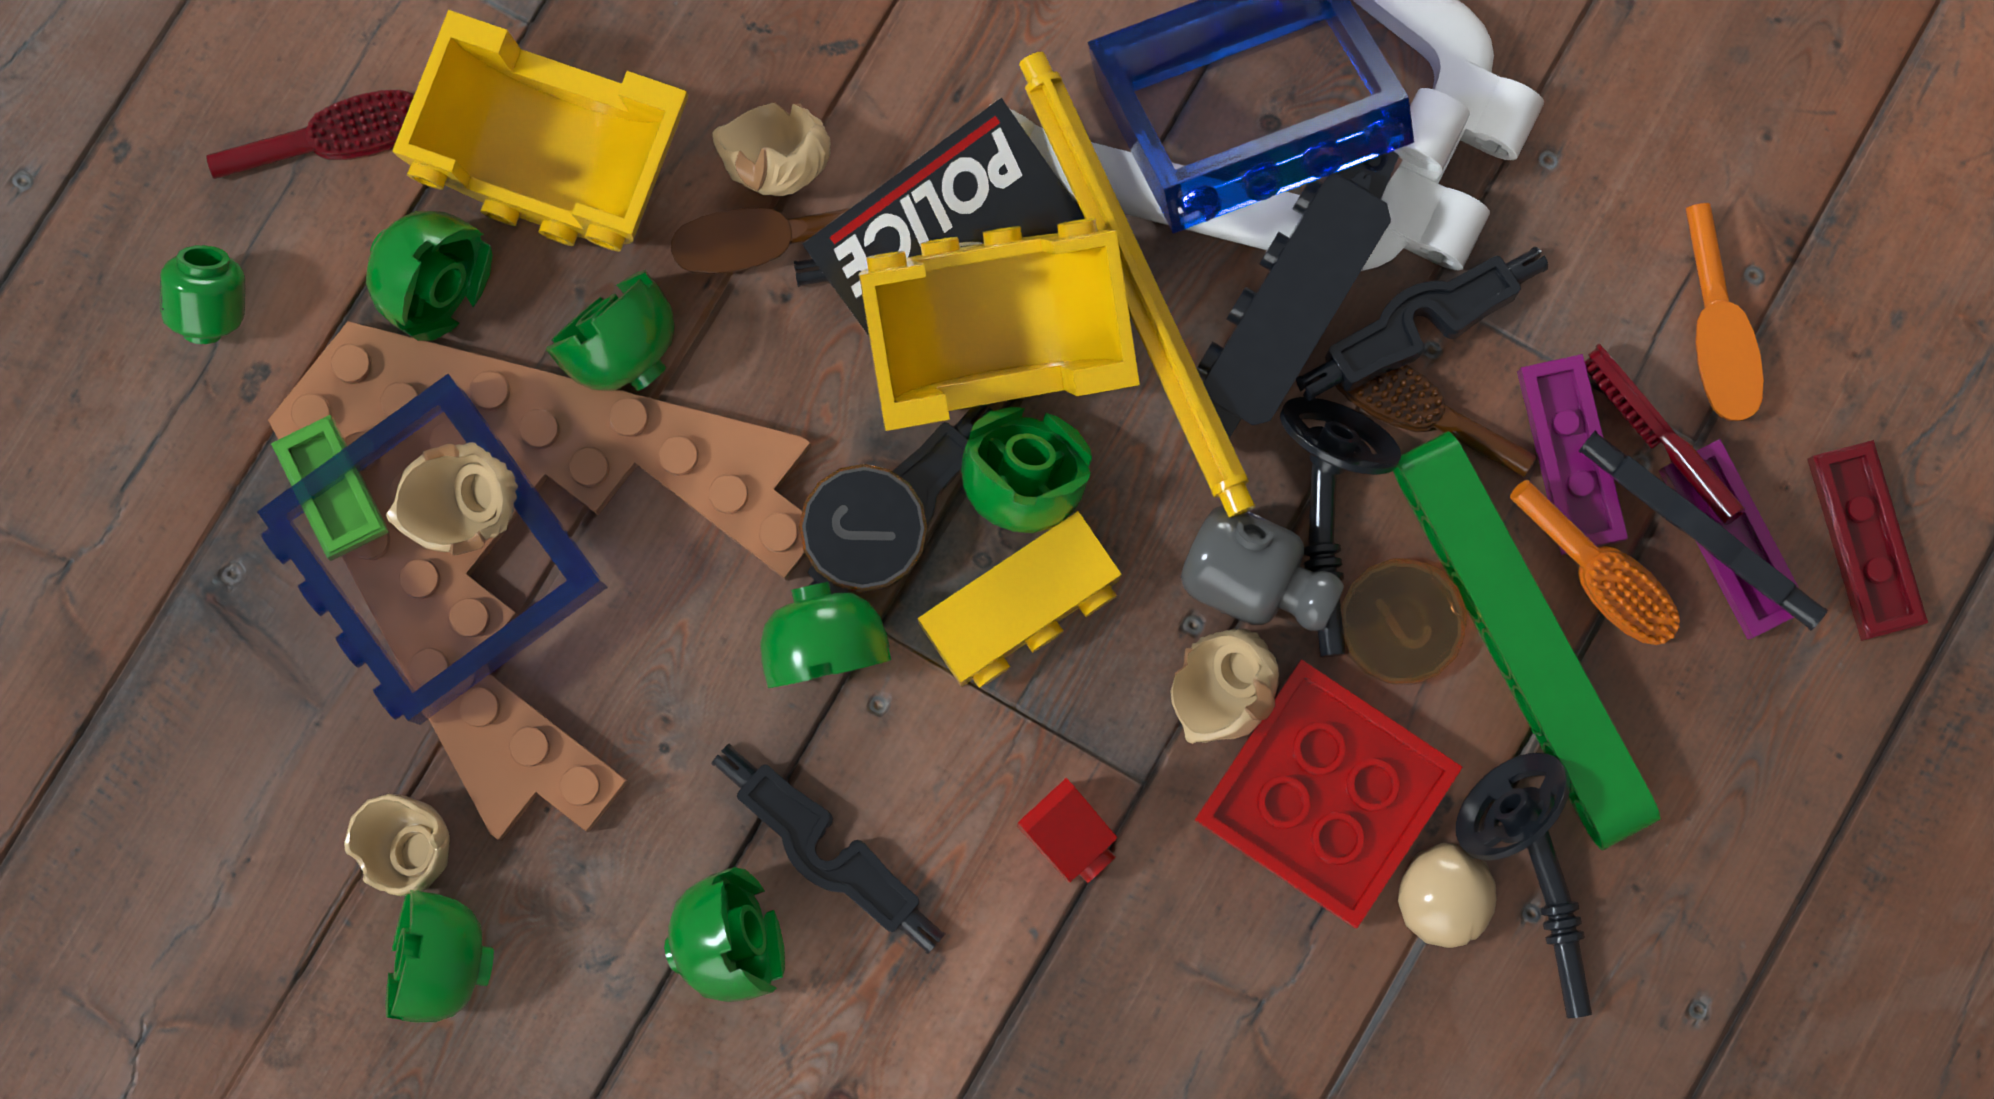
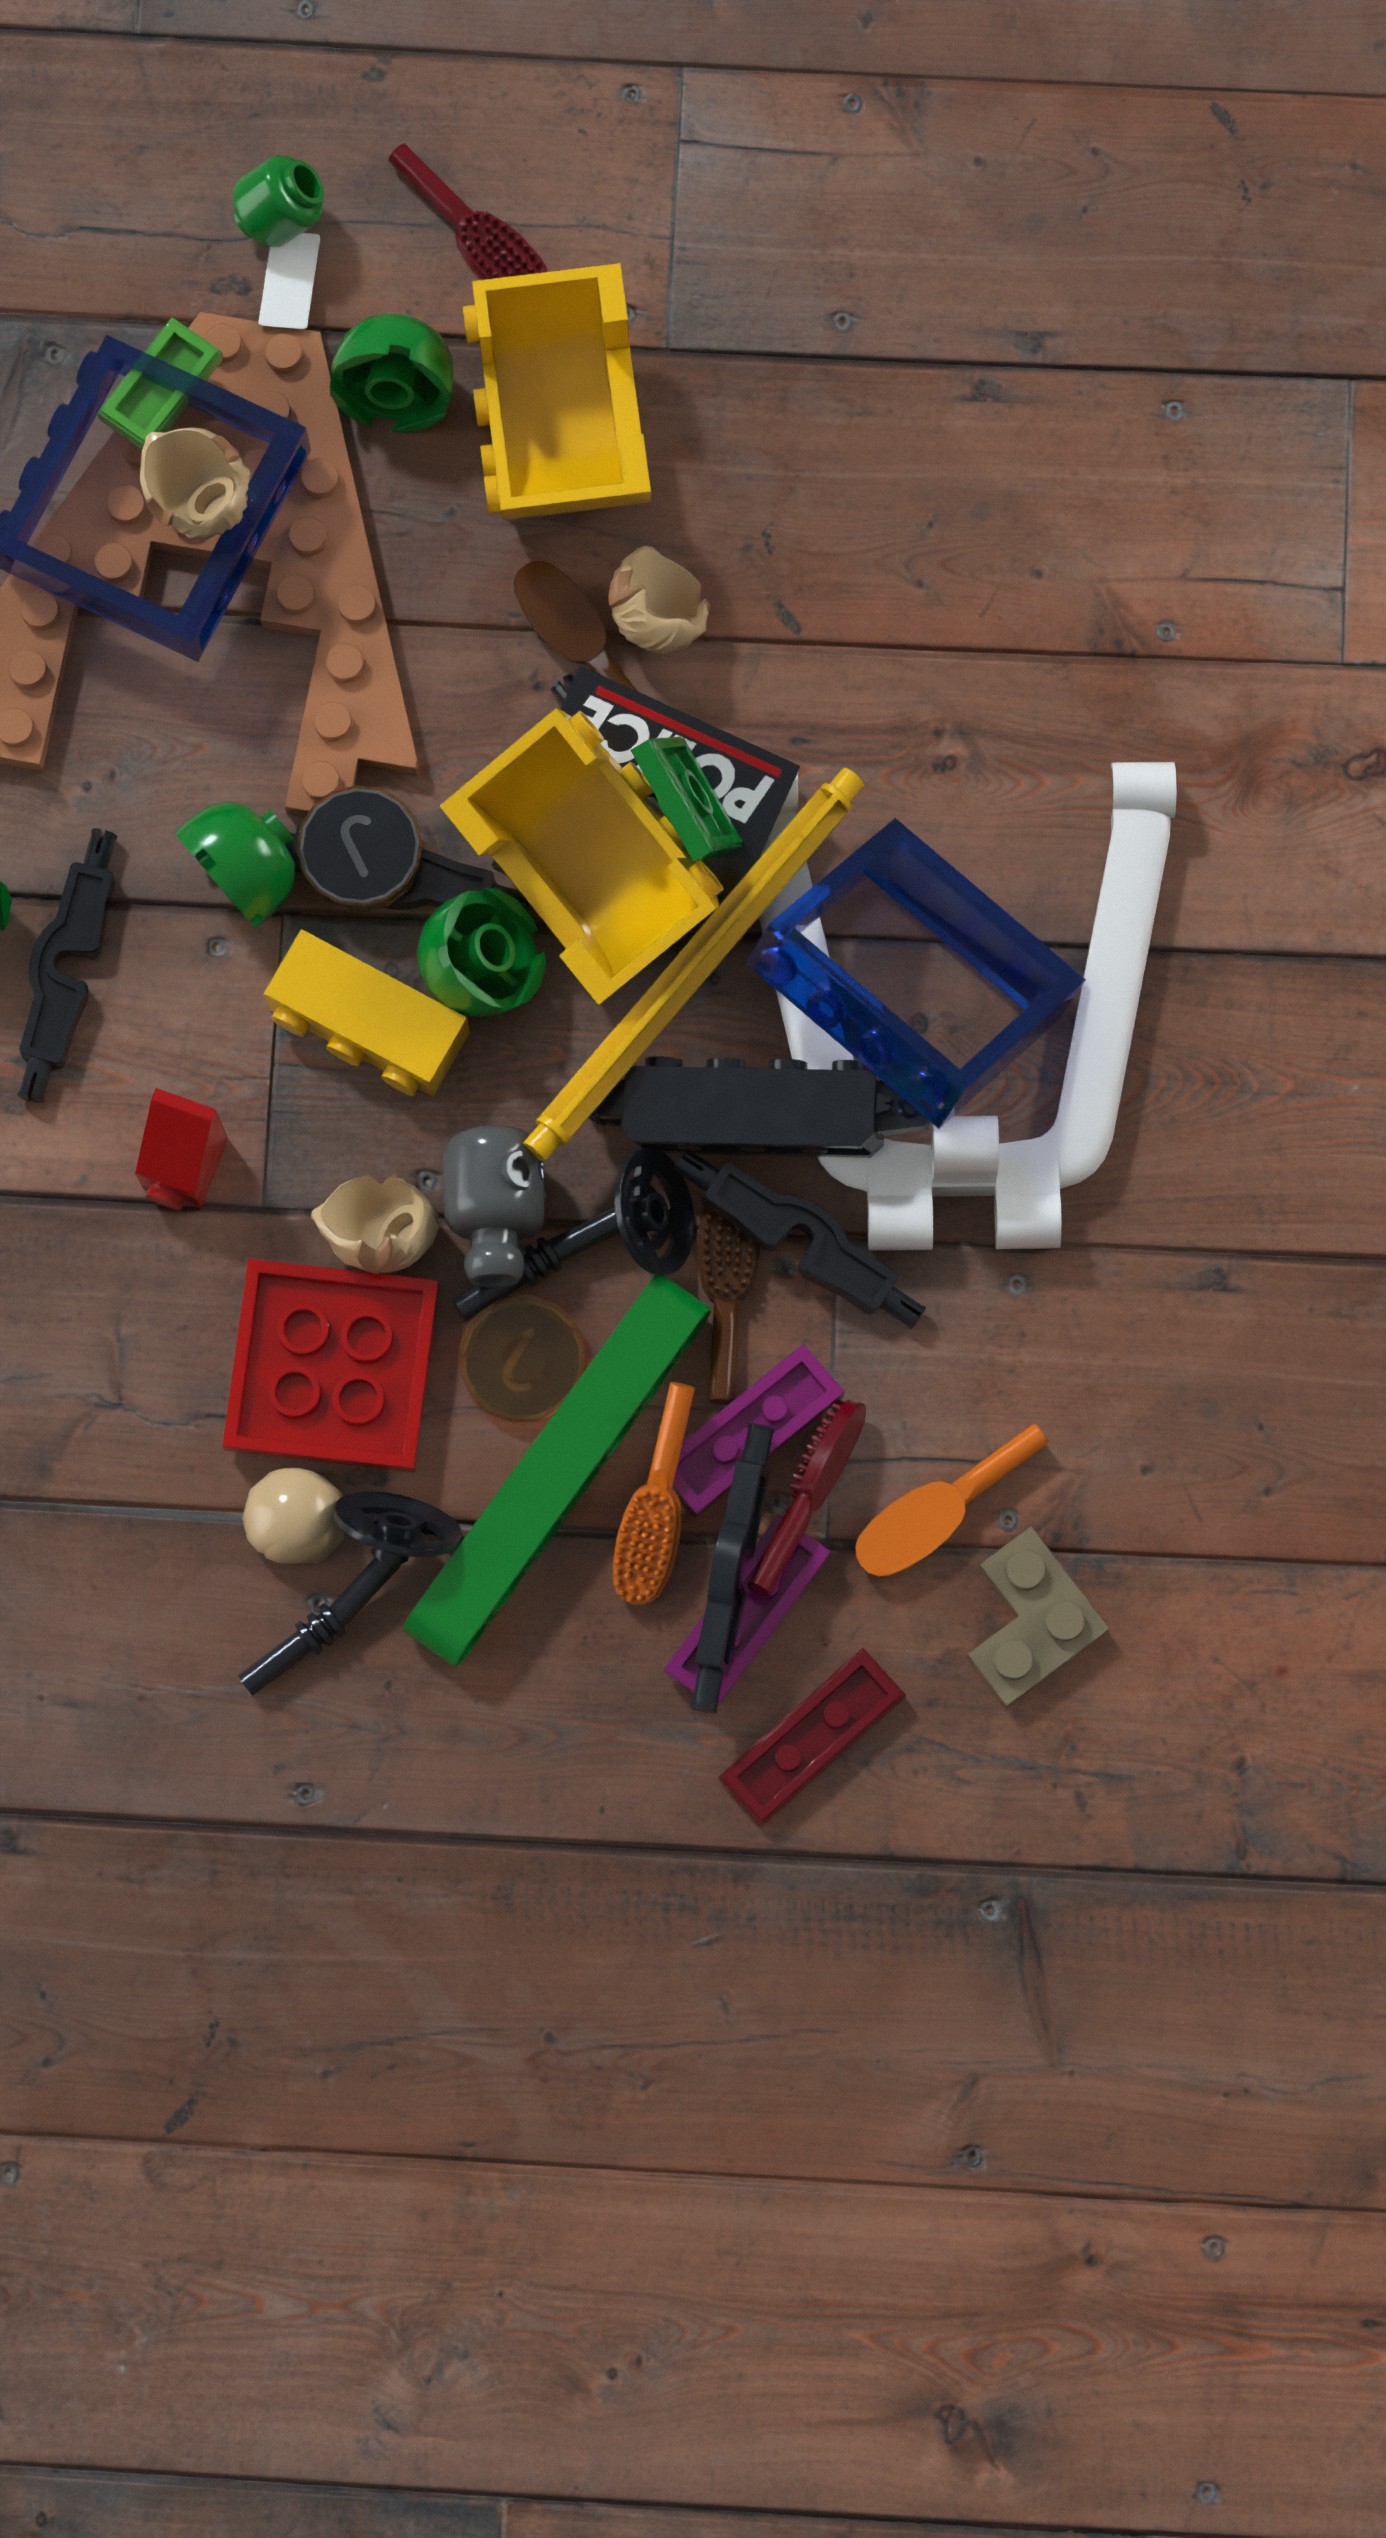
camera: 65 degrees right, 5 degrees down
(285, 326) = (290, 283): none -> white sticker
(618, 337) = (419, 559): green cylinder -> none
(990, 208) = (687, 798): none -> green plate
(1866, 284) = (1050, 1622): none -> dark tan plate

